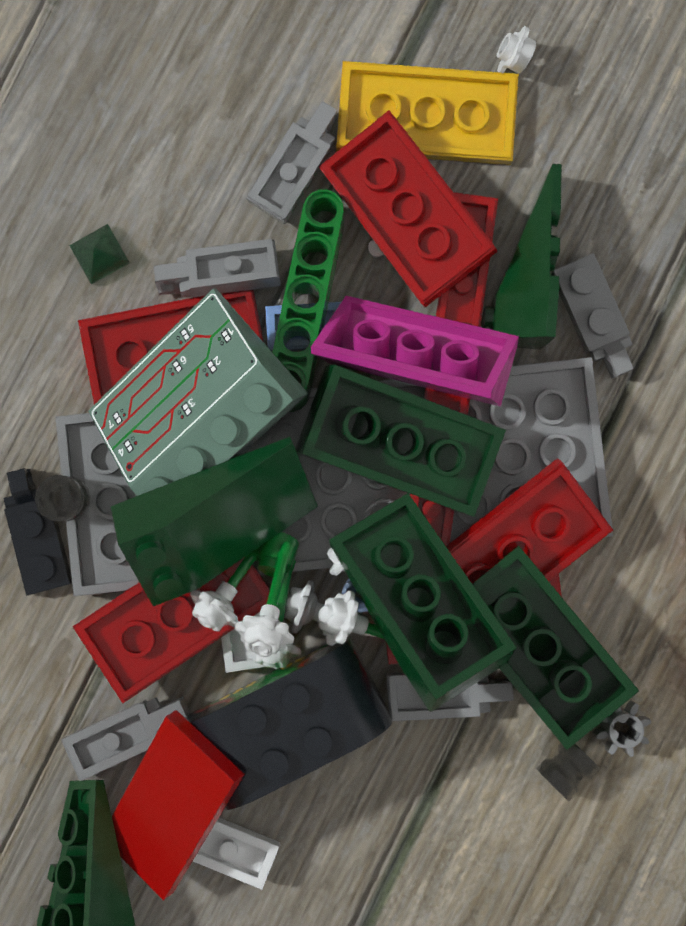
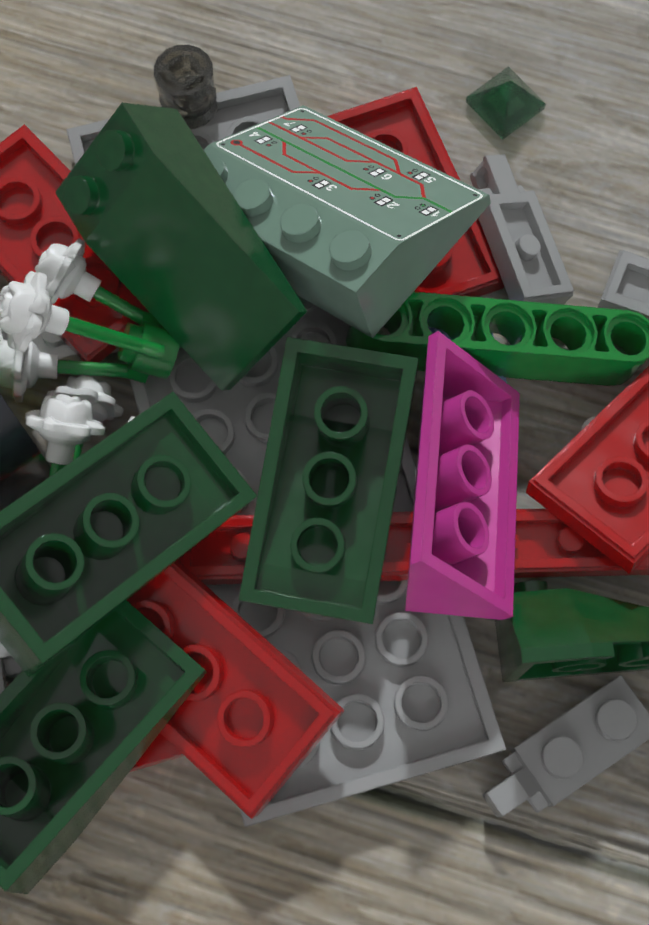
camera: 80 degrees right, 15 degrees down
(34, 537) = (129, 80): black hinge -> none

